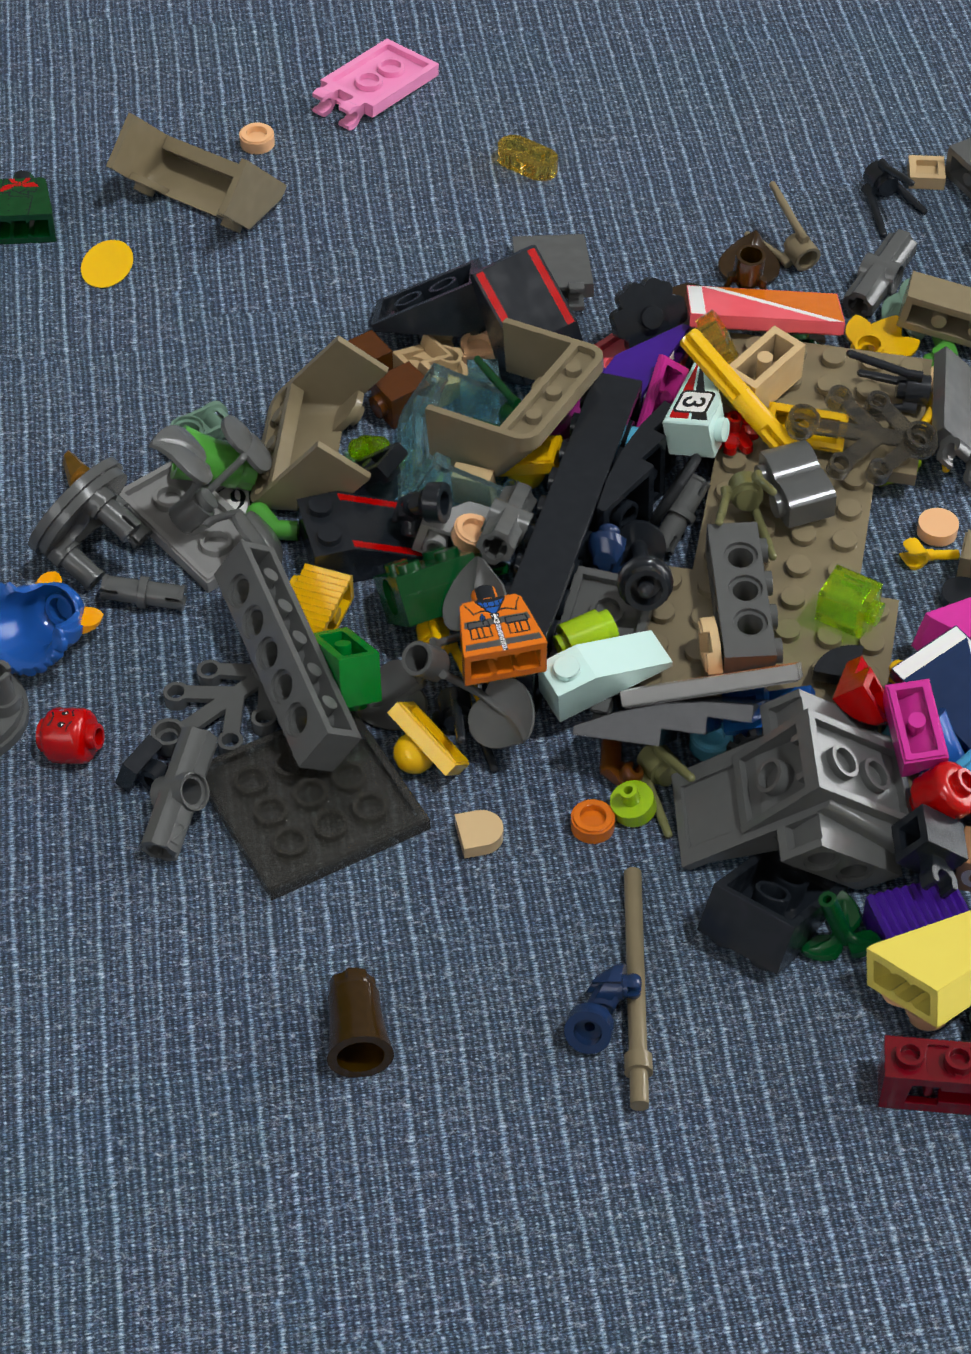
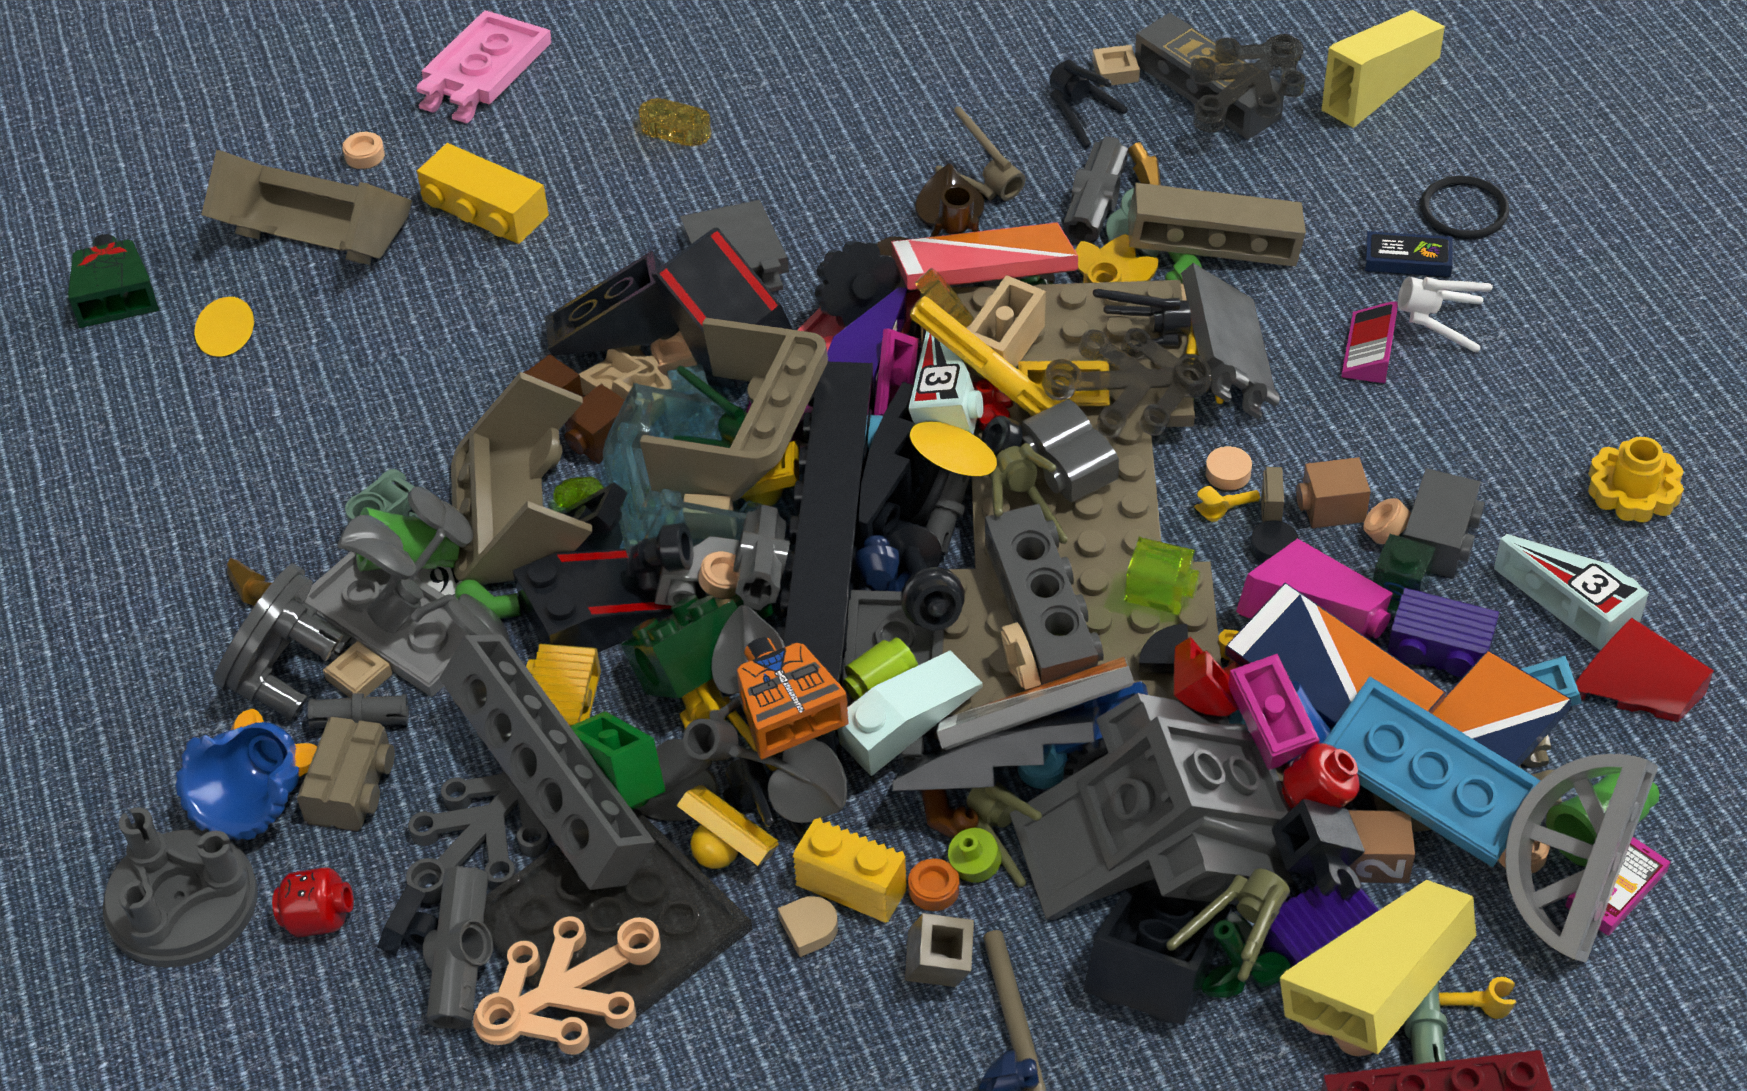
camera: 10 degrees left, 0 degrees up
(121, 639) = (346, 774): none -> dark tan brick
(151, 559) = (357, 671): none -> tan tile
(260, 842) = (563, 987): none -> light nougat plant
(348, 189) = (483, 193): none -> yellow brick
(523, 794) = (850, 870): none -> yellow brick
(581, 872) = (939, 950): none -> dark tan brick
(693, 463) = (953, 448): none -> yellow sticker
(738, 459) = (1002, 434): none -> black tile
(863, 883) = (1259, 903): none -> olive plant
(931, 262) = (1145, 166): none -> pearl gold bar

